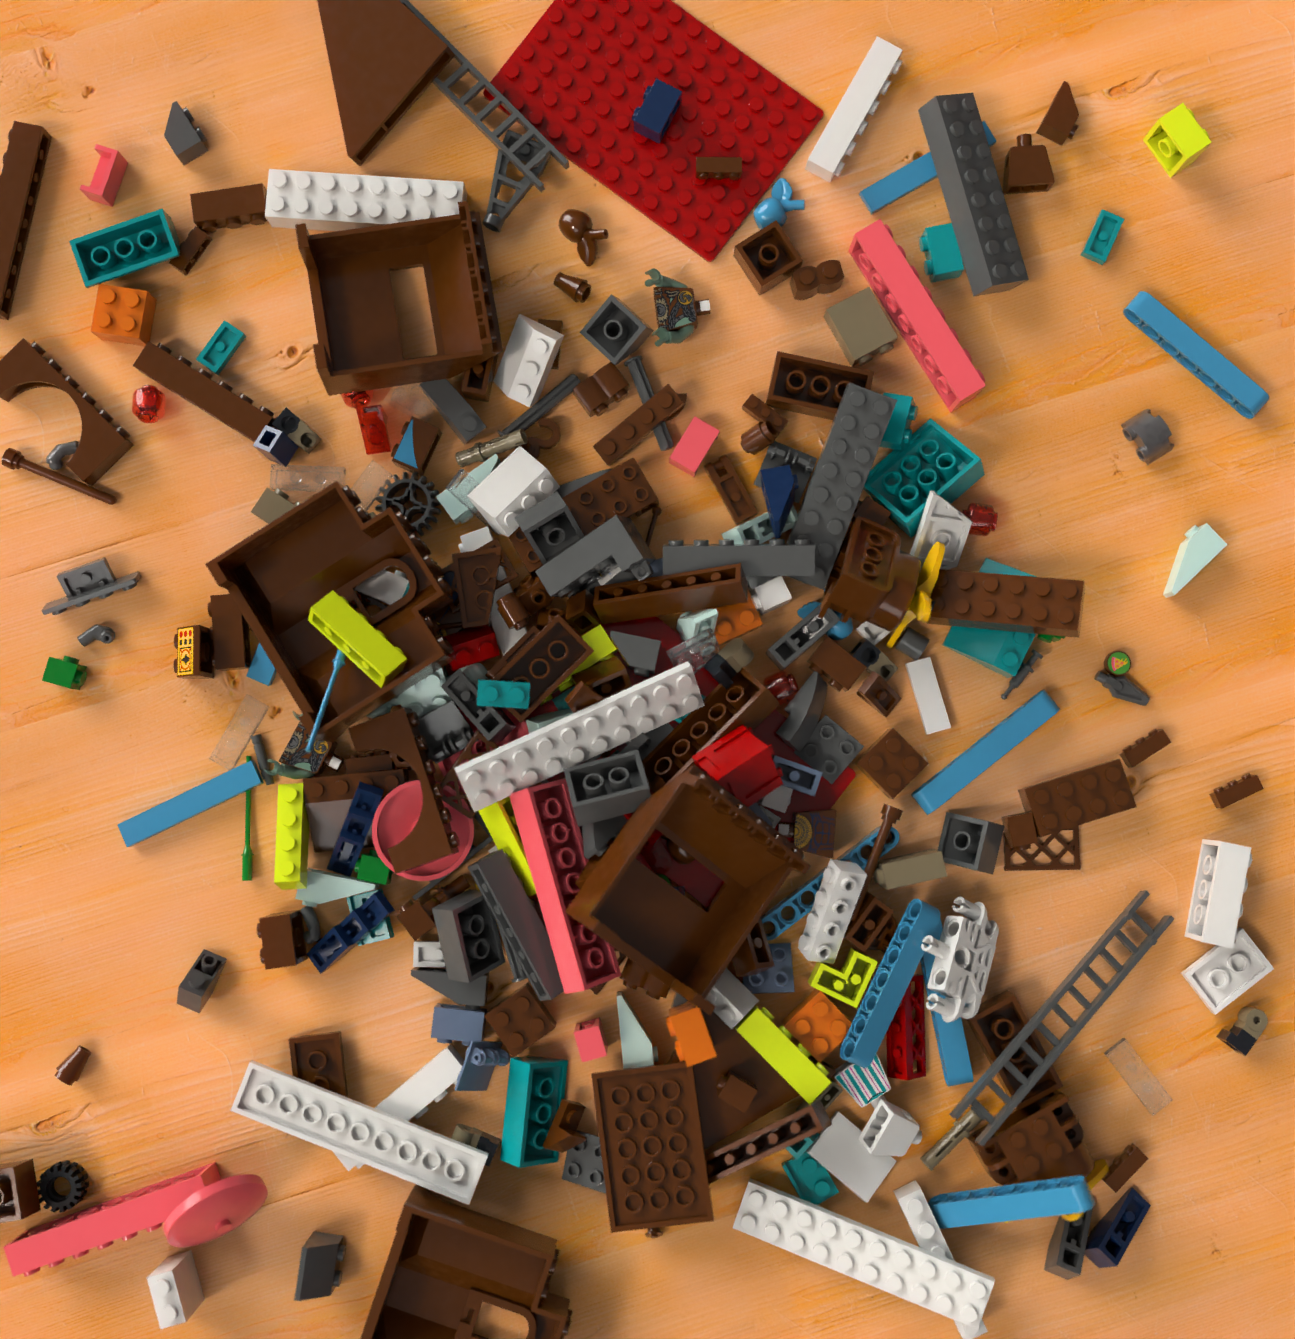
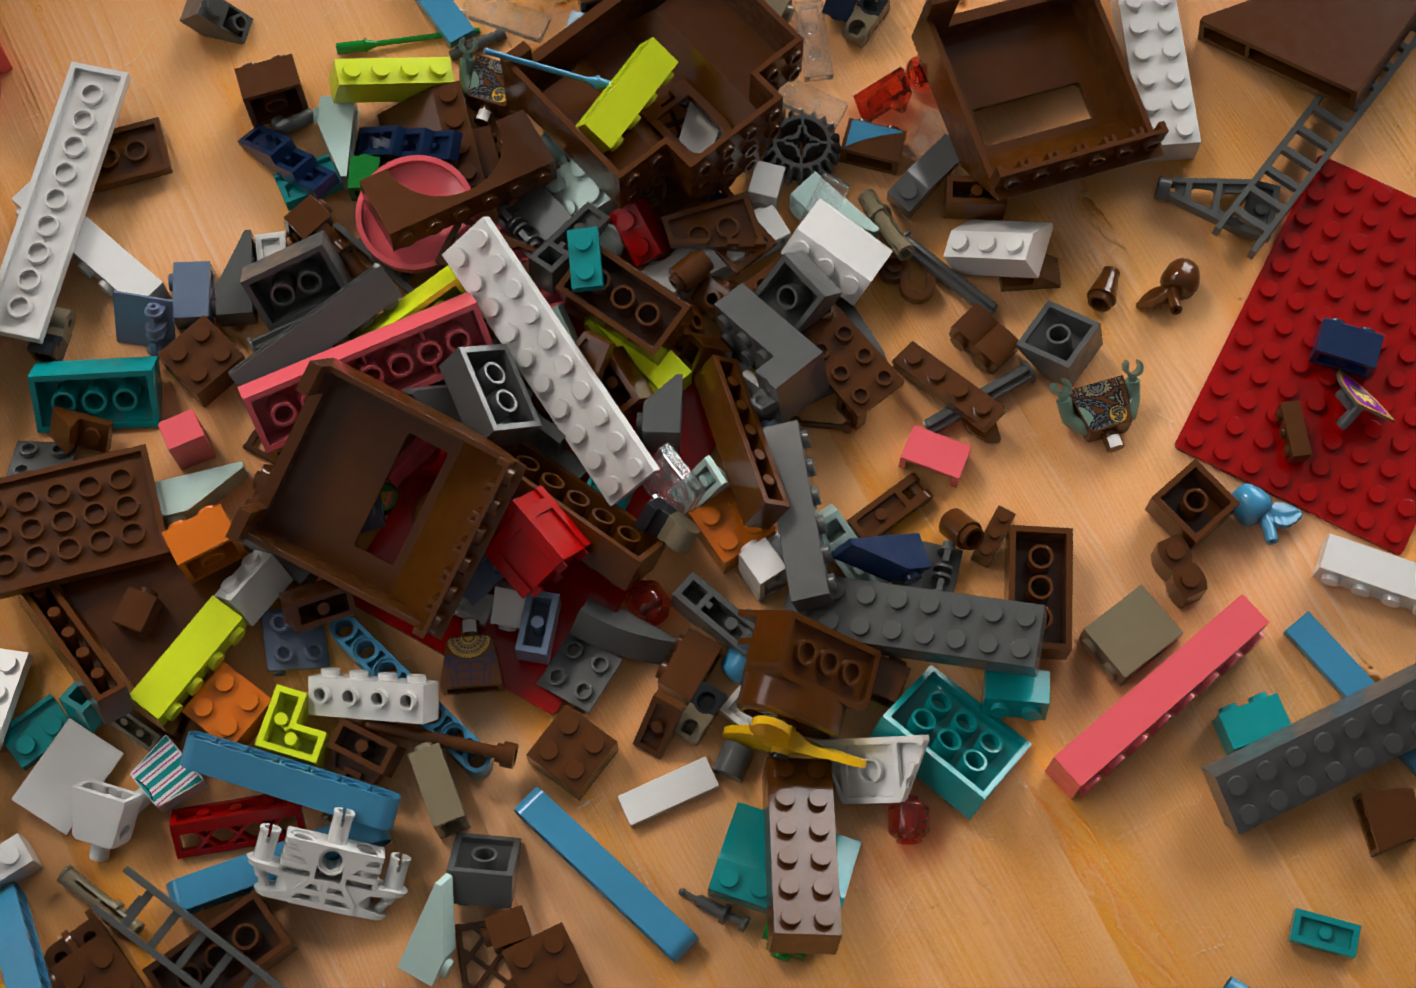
camera: 80 degrees right, 15 degrees down
(439, 539) = (766, 184): none -> white brick
(703, 113) = (1356, 400): none -> shield
(1025, 889) = (433, 938): none -> light aqua slope

